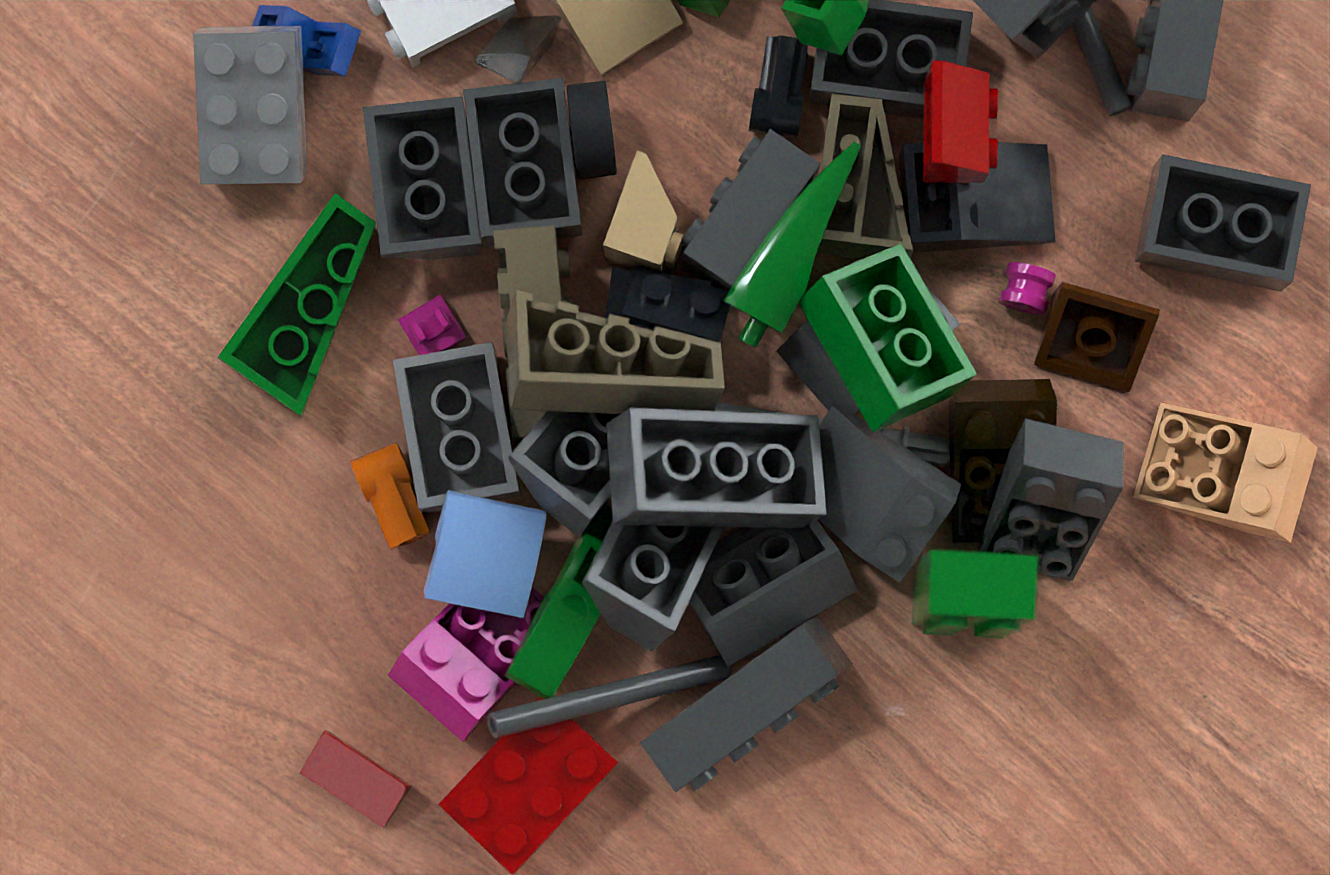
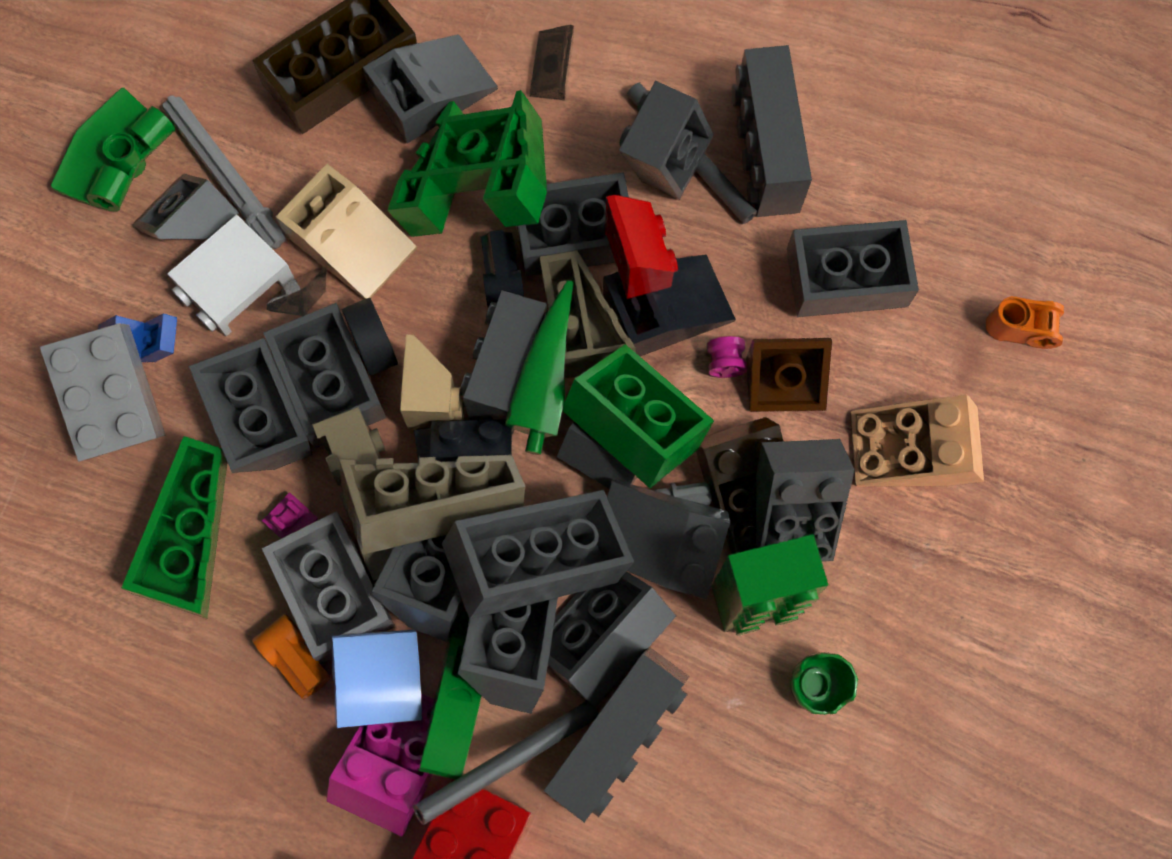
camera: 20 degrees left, 10 degrees down
(1006, 722) = (823, 683): none -> green hair

